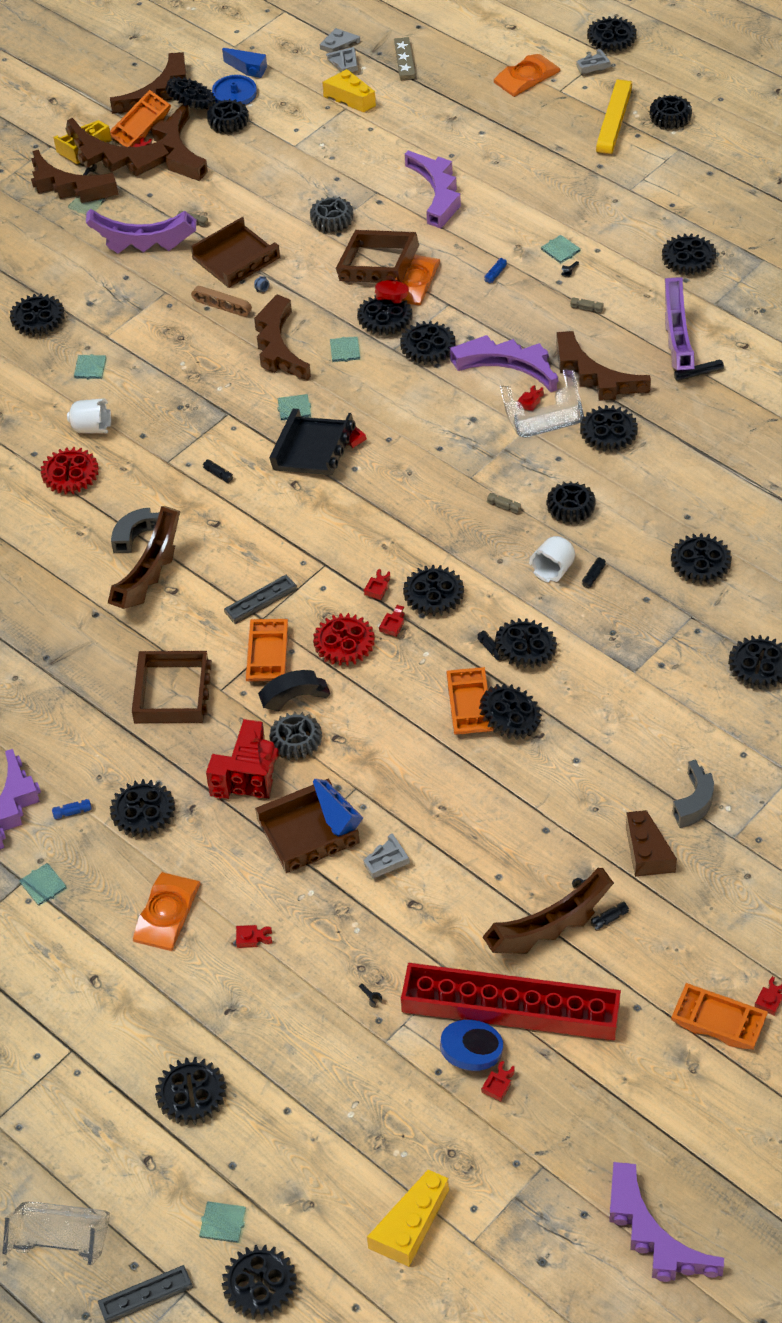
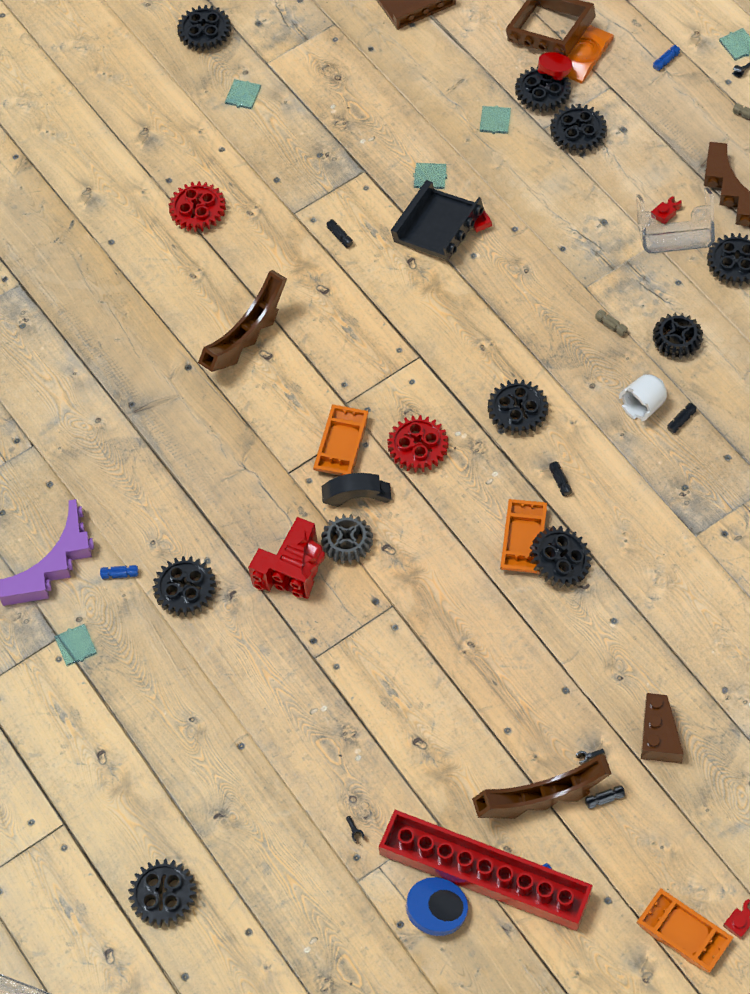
camera: 15 degrees right, 10 degrees up
(89, 416) = (229, 151): white cylinder -> none
(130, 527) = (239, 280): dark grey arch -> none
(165, 911) = (183, 698): orange slope -> none
(170, 659) = (245, 431): reddish brown window -> none
(239, 306) = (385, 44): medium nougat beam -> none
(249, 936) = (254, 742): red plate -> none
(260, 599) = (348, 382): dark grey tile -> none
(261, 284) = (429, 32): sand blue plate -> none
(274, 352) = (422, 97): reddish brown arch -> none
(299, 829) = (335, 638): reddish brown panel -> none
(336, 809) = (365, 629): blue slope -> none
(377, 586) = (465, 391): red plate -> none
(386, 858) = (403, 688): light grey wing -> none
(393, 622) = (471, 434): red plate -> none
(498, 1083) = (453, 952): red plate -> none
(506, 354) = (632, 150): medium lavender arch -> none
(513, 644) = (577, 483): black gear -> none
(696, 806) = (720, 697): dark grey arch -> none

